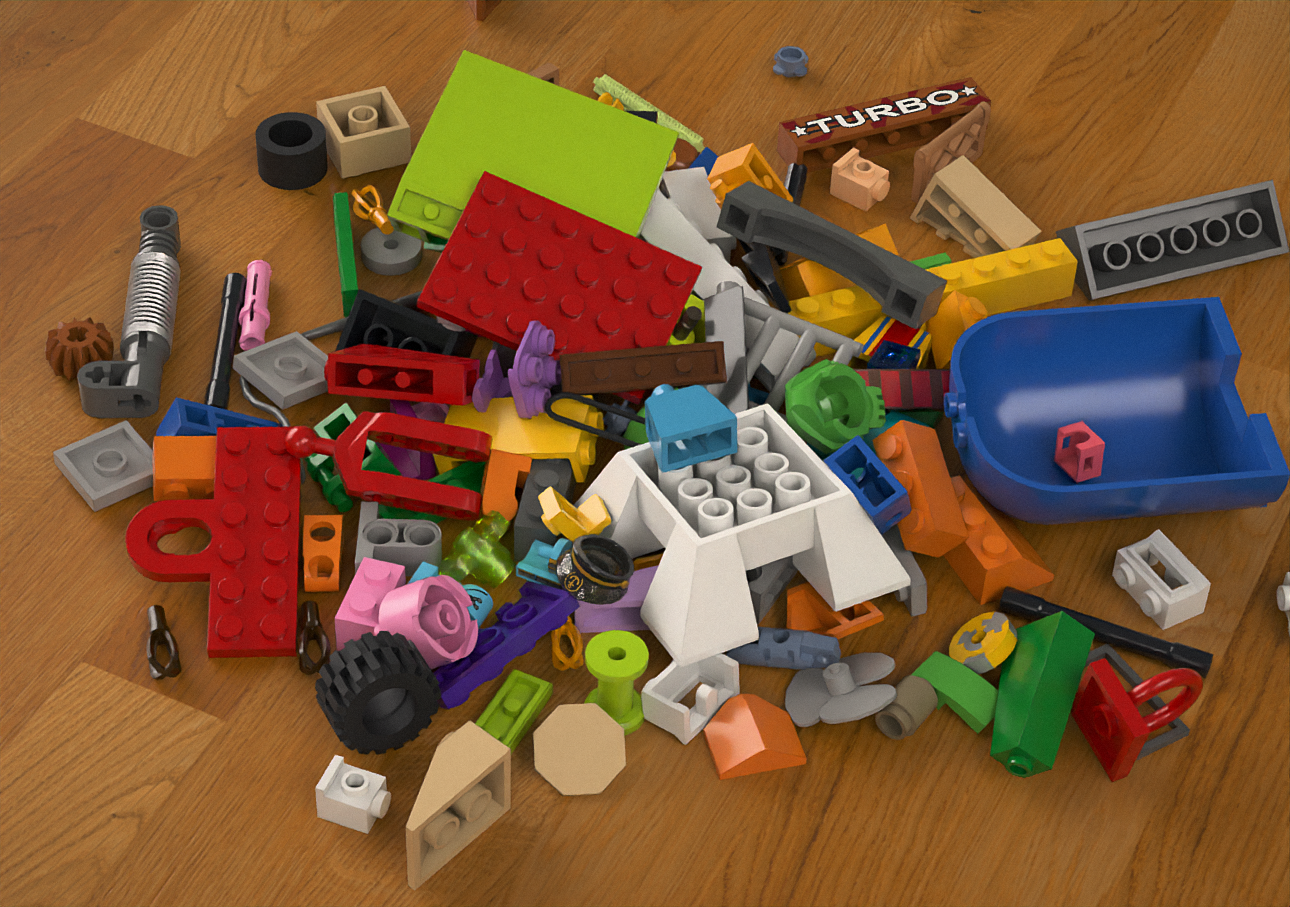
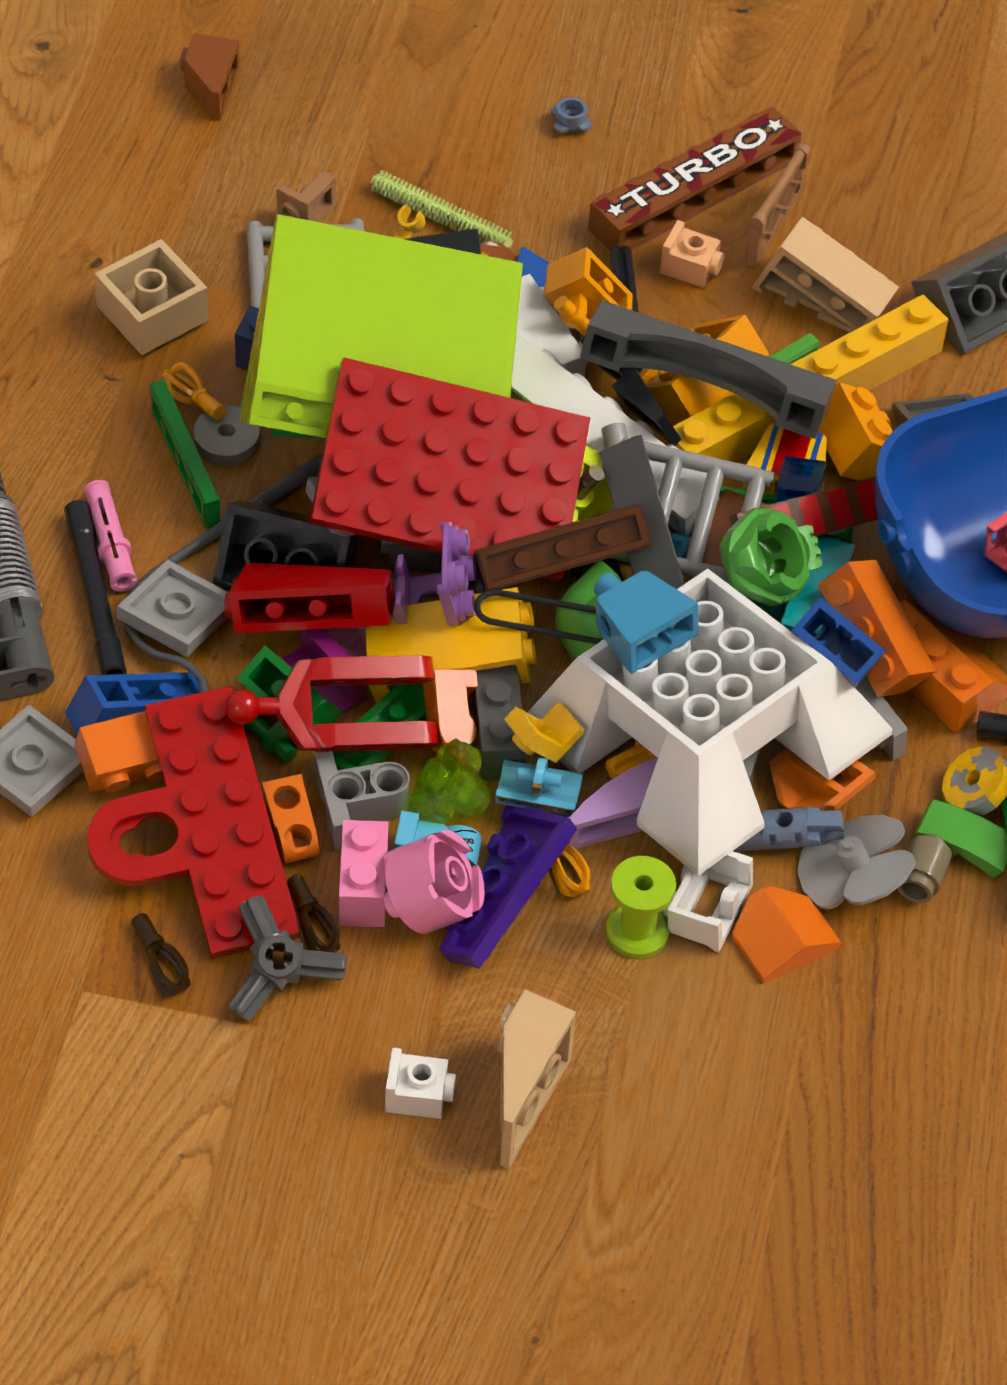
camera: 15 degrees left, 10 degrees up
(260, 647) = (263, 976): none -> dark grey bush
(291, 151) = (80, 355): black piece -> none
(377, 692) = (412, 971): black tyre -> none
(515, 707) = (537, 955): lime tile -> none
(579, 749) = (624, 985): tan piece -> none
(595, 570) = (584, 788): piece -> none
(618, 424) = (539, 589): sand blue plate -> none

